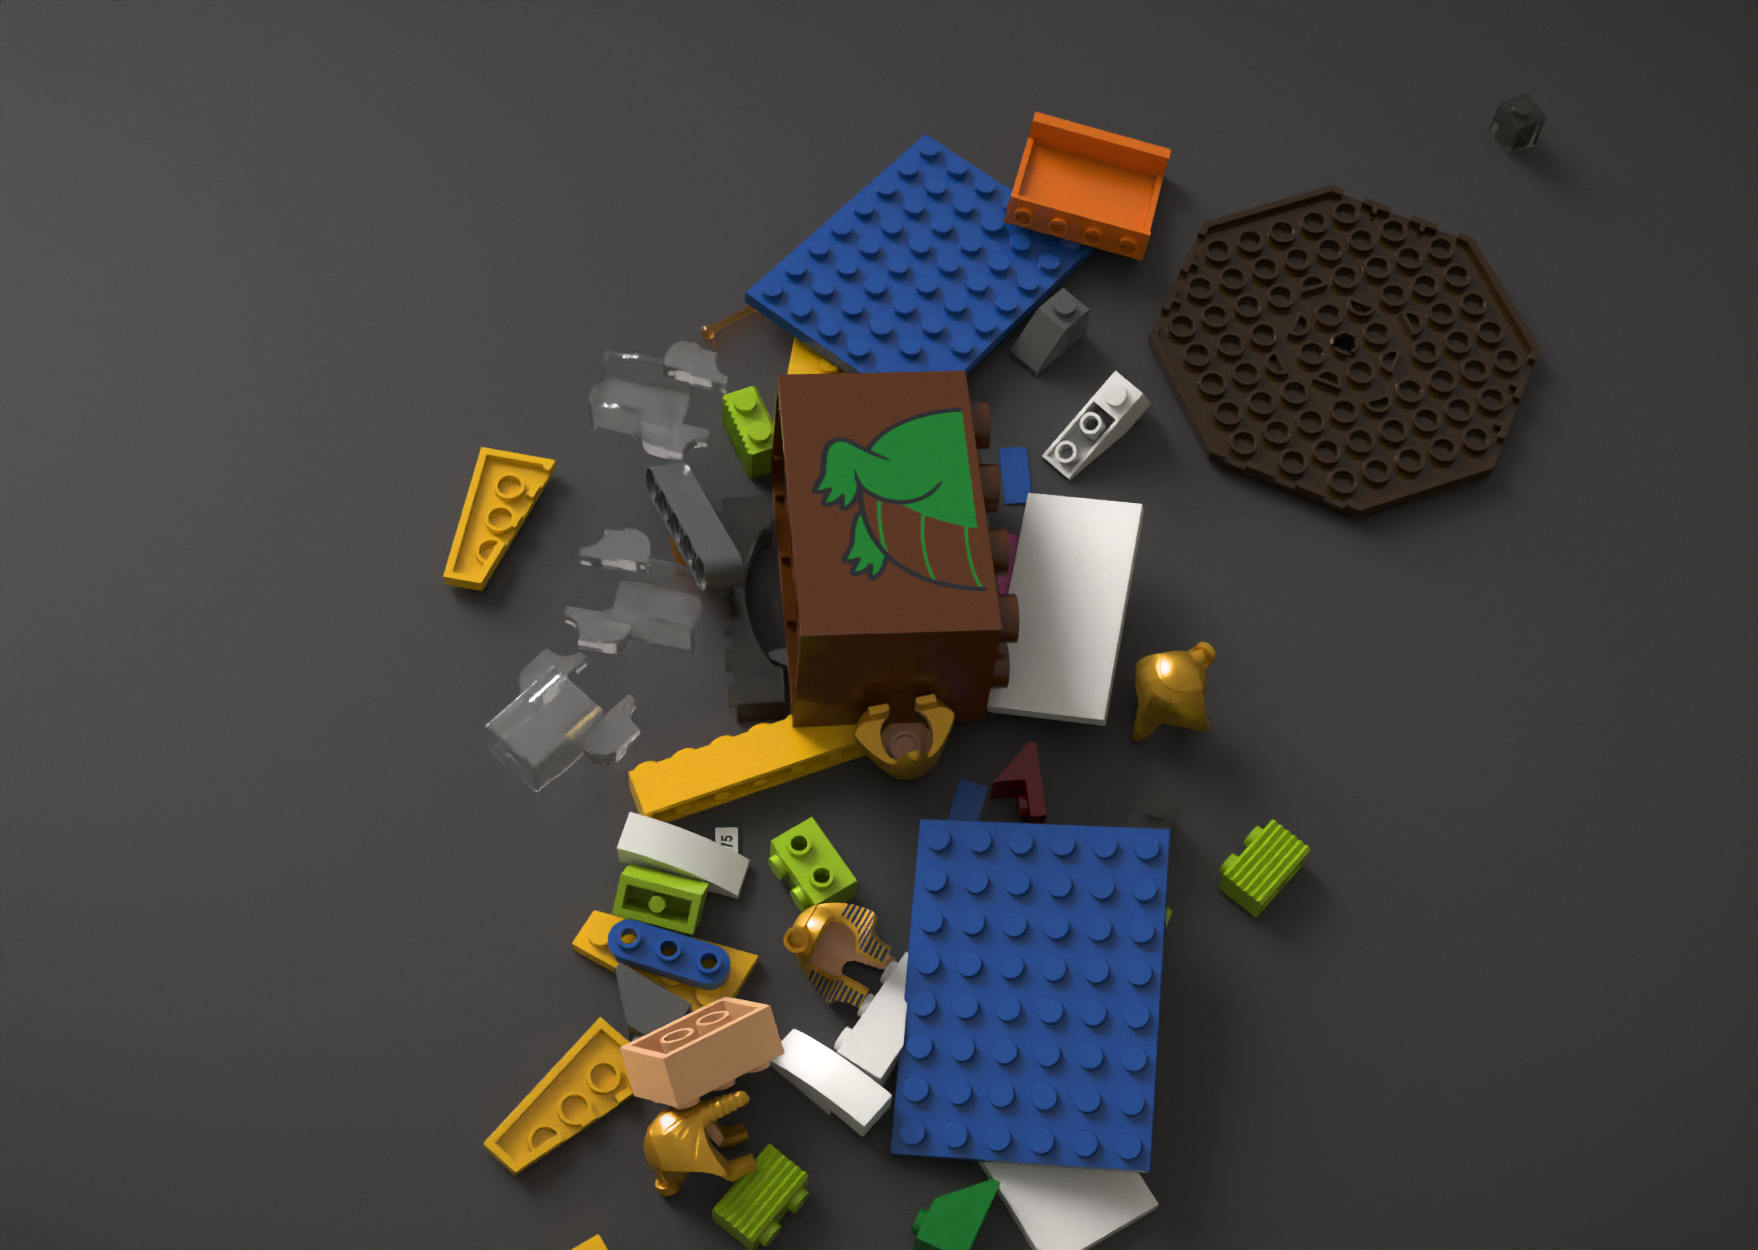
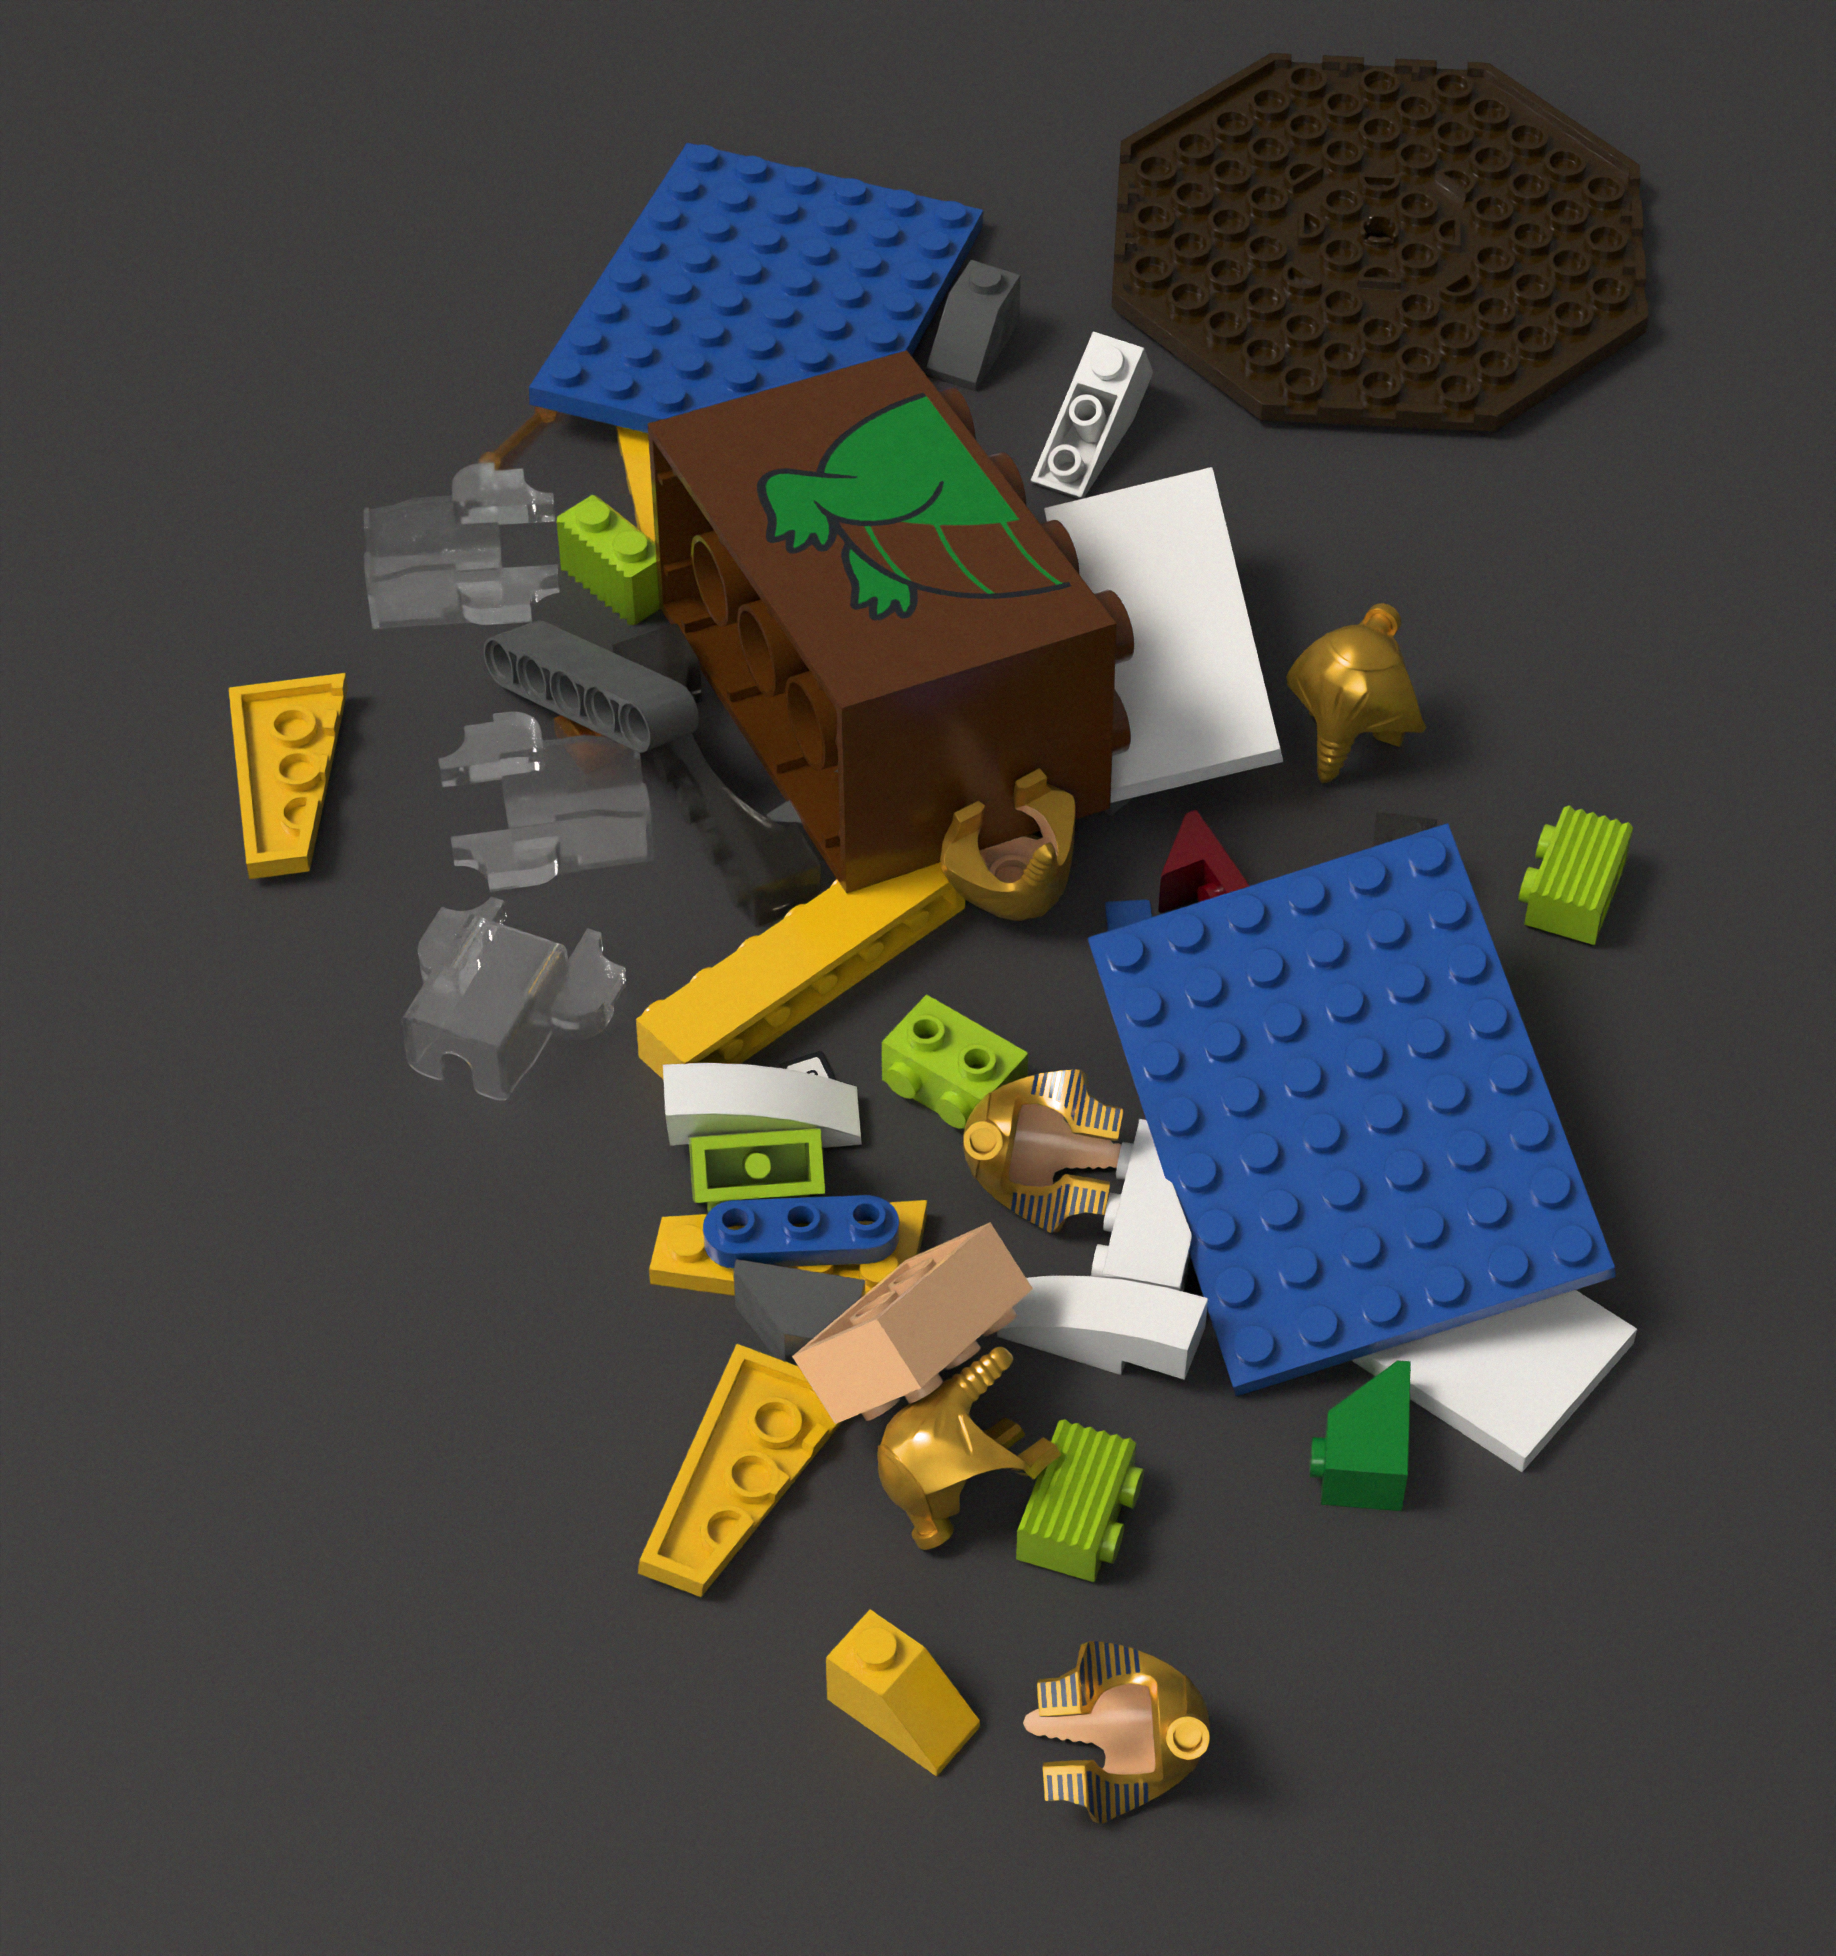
camera: 15 degrees left, 10 degrees down
(1088, 186) = (943, 137): orange panel -> none

